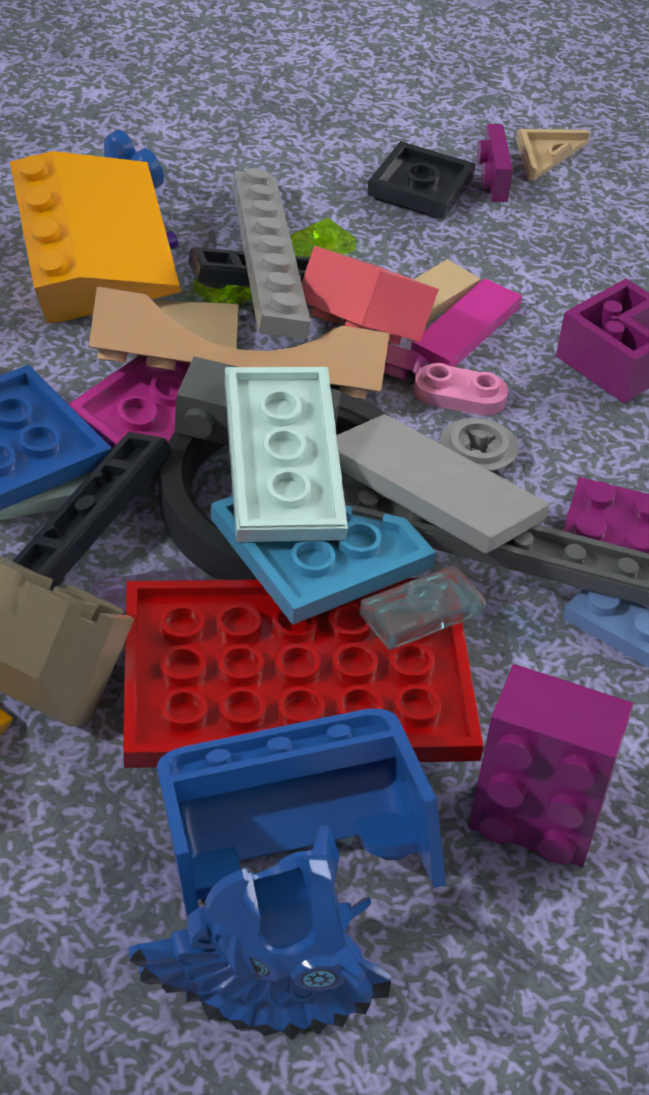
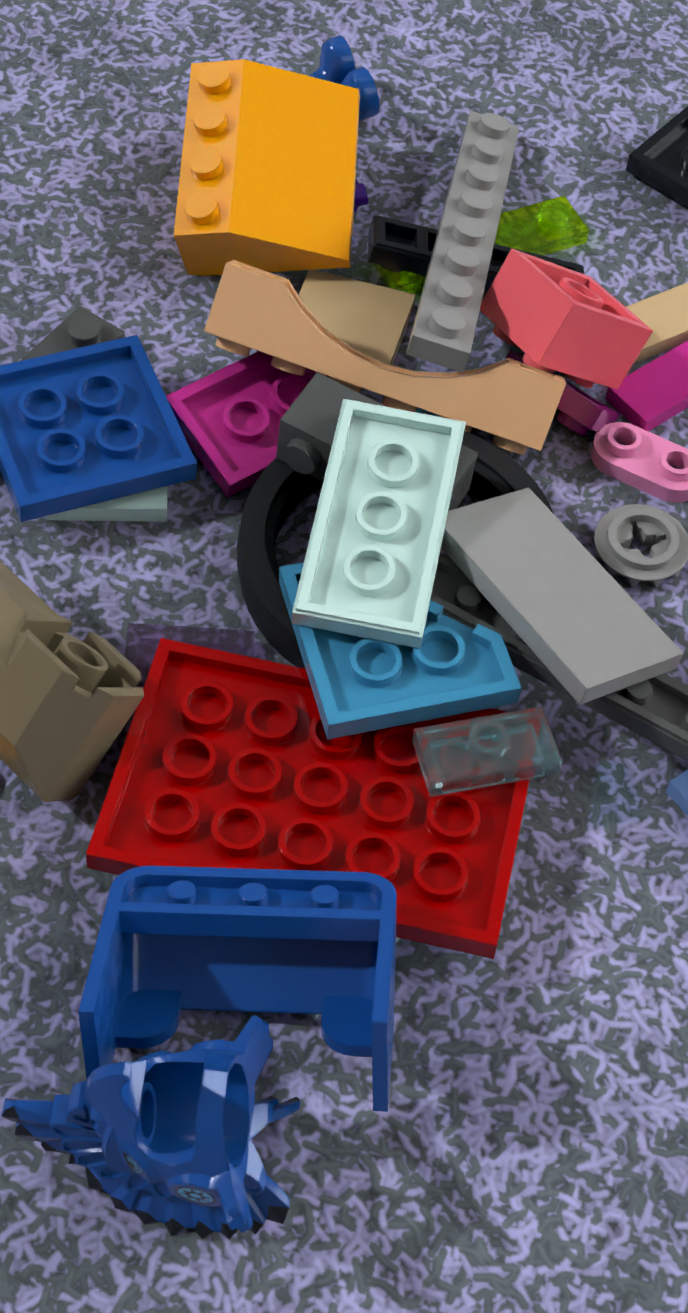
camera: 15 degrees right, 10 degrees up
(94, 506) = (150, 537): black plate -> none
(548, 765) = (554, 995): magenta brick -> none

